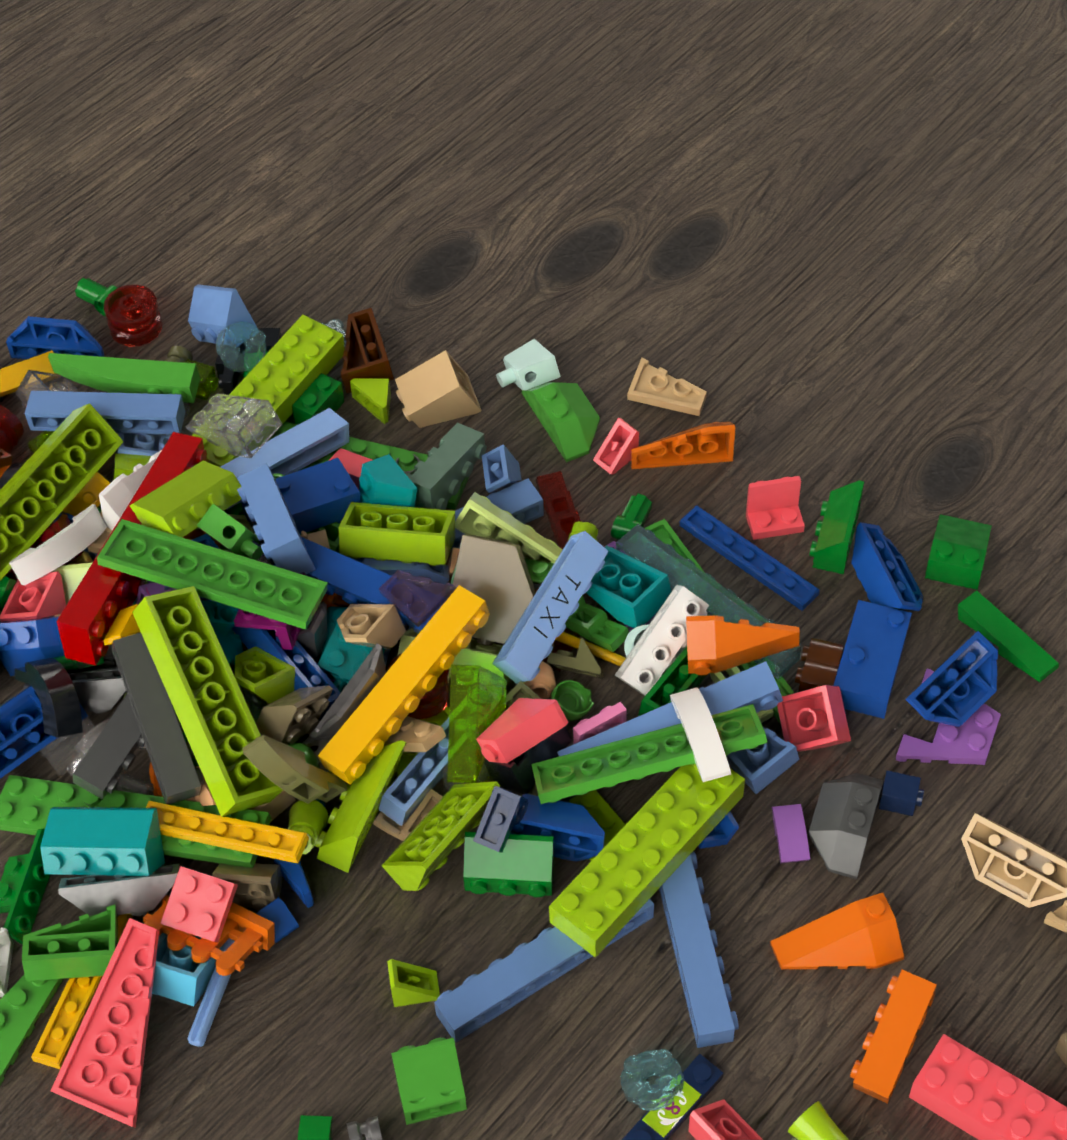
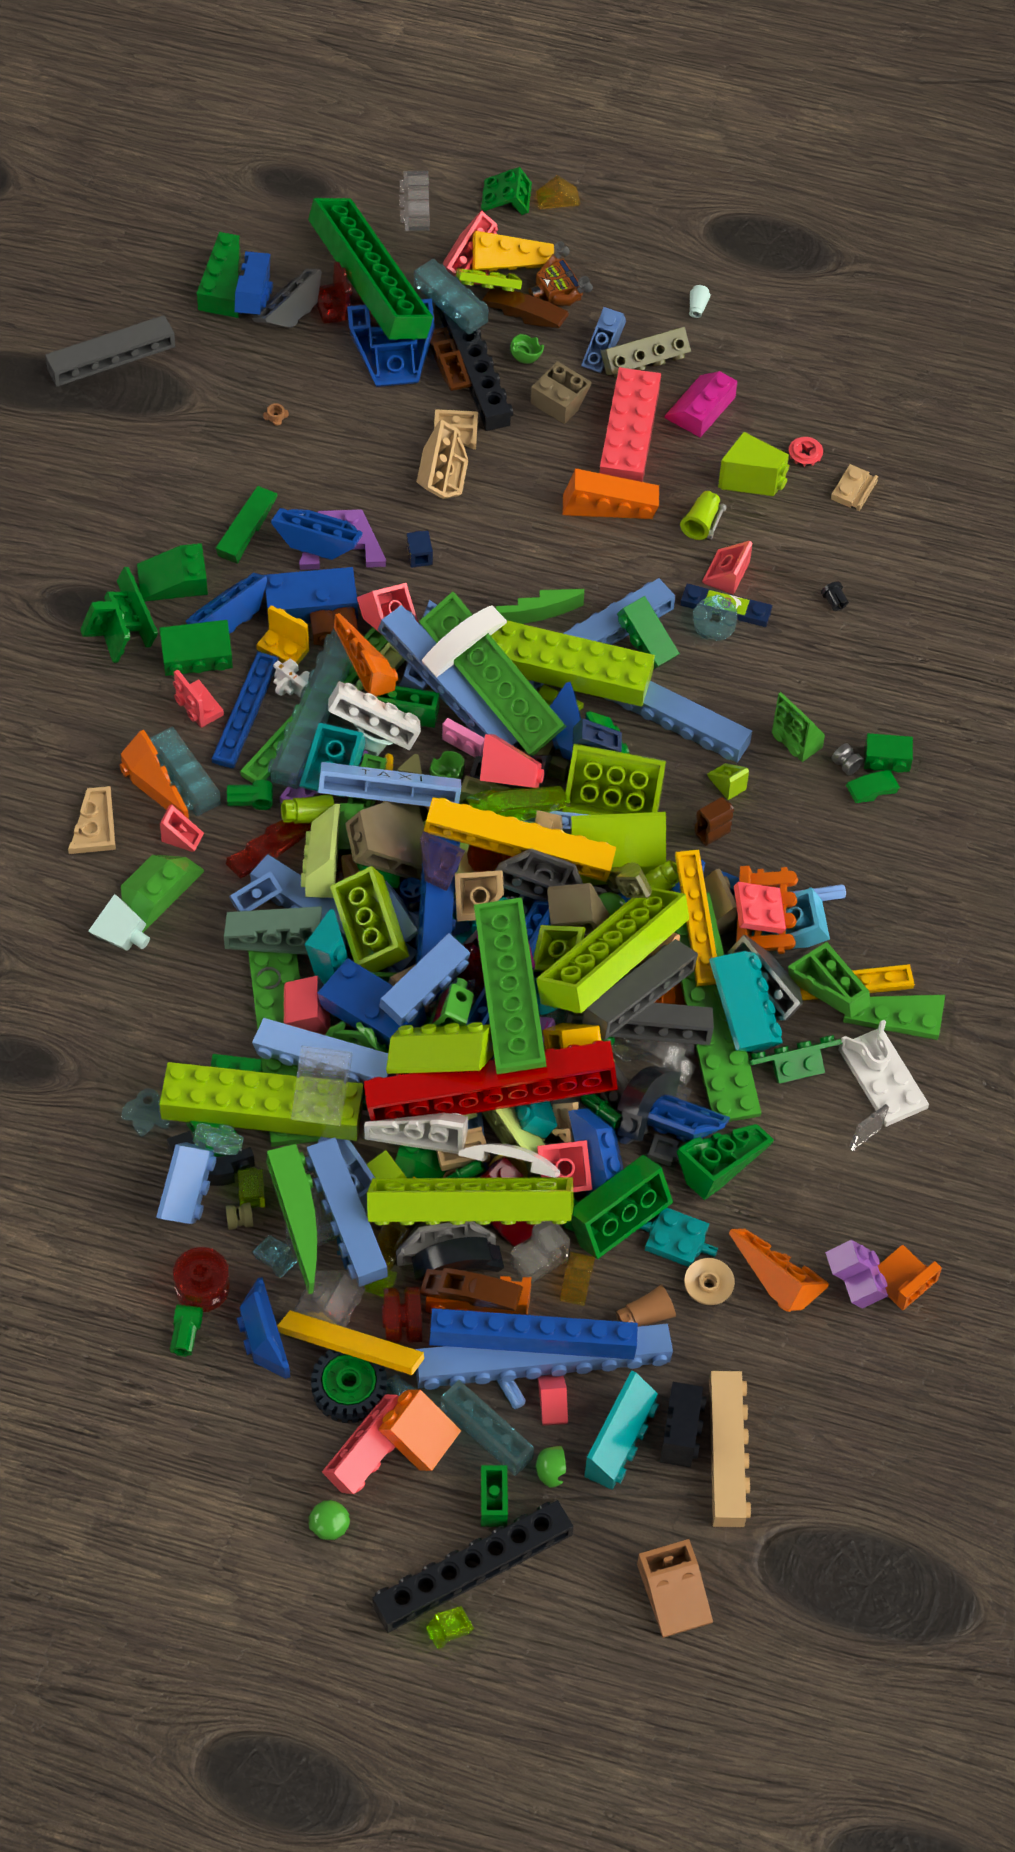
camera: 120 degrees left, 5 degrees up
(109, 1048) = (877, 927): coral wing -> none
(352, 928) = (714, 821): none -> reddish brown brick
(364, 350) = (149, 1062): reddish brown wedge -> none
(373, 395) = (206, 1033): lime slope -> none
(436, 392) = (182, 986): tan slope -> none
(652, 974) = (647, 631): none -> brick
(689, 474) = (185, 772): none -> clear light blue brick
(758, 891) = (547, 605): none -> bright green slope
(769, 600) = (287, 680): none -> white hips
(791, 833) = (492, 596): medium lavender slope -> none
(821, 614) = (286, 636): none -> yellow bracket
(845, 821) = (454, 570): dark grey wedge -> none
(851, 936) = (550, 549): orange wedge -> none
(897, 464) = (107, 621): none -> green bracket
(925, 491) = (135, 612): none -> green bracket

